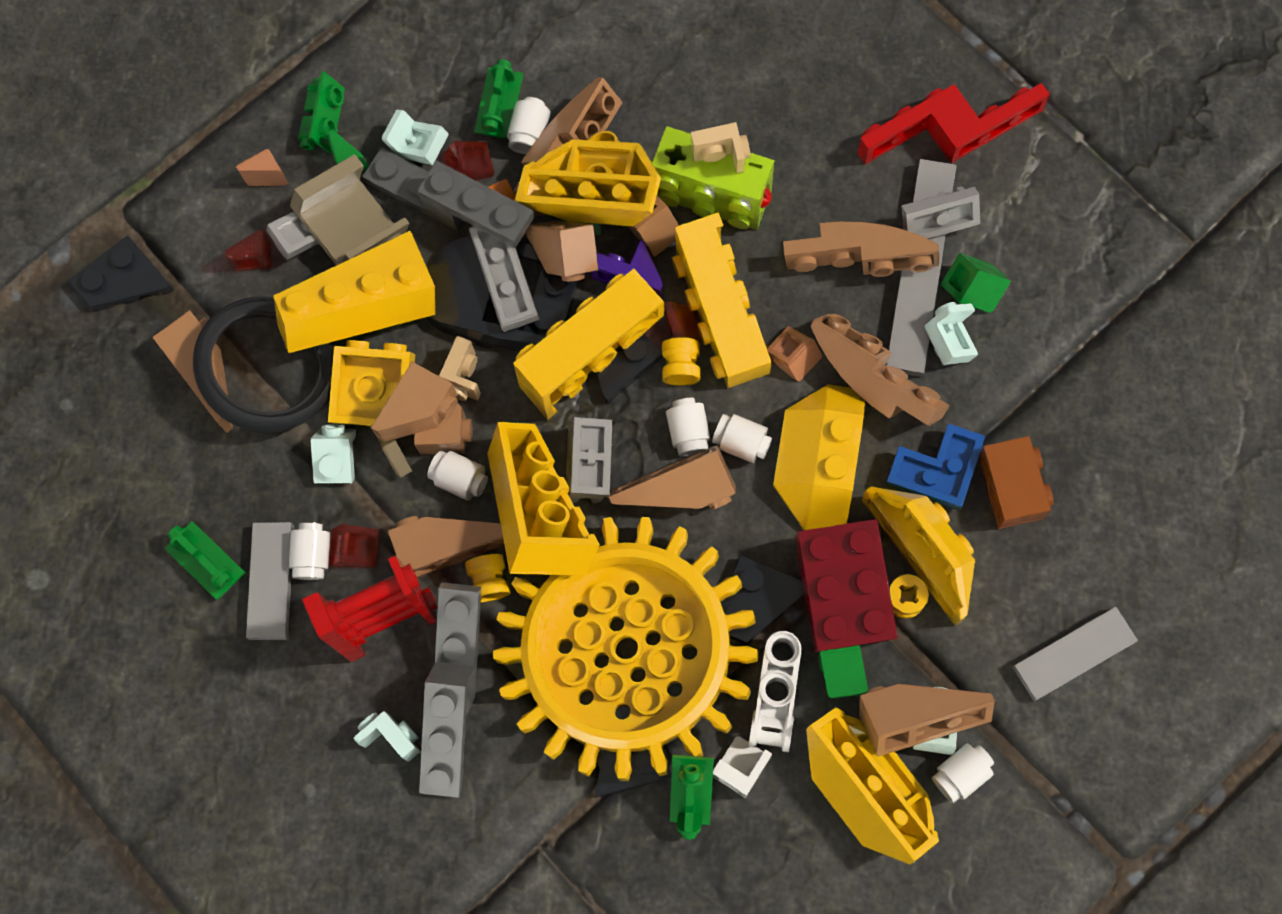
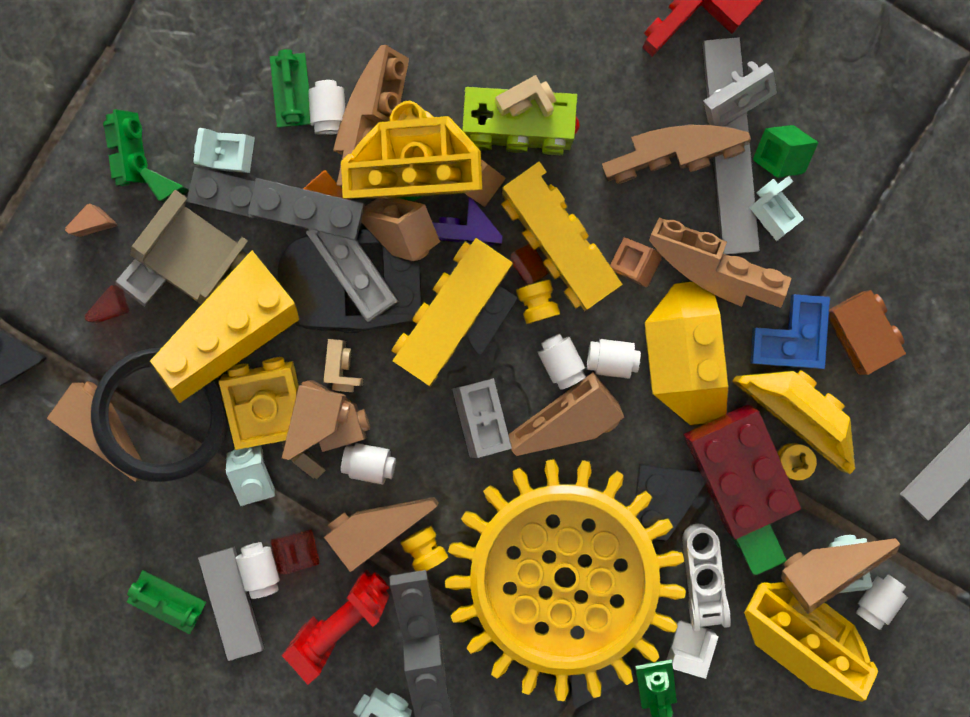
camera: 25 degrees left, 15 degrees up
(470, 159) = (281, 157): clear red slope -> none
(535, 512) = (452, 487): yellow wedge -> none

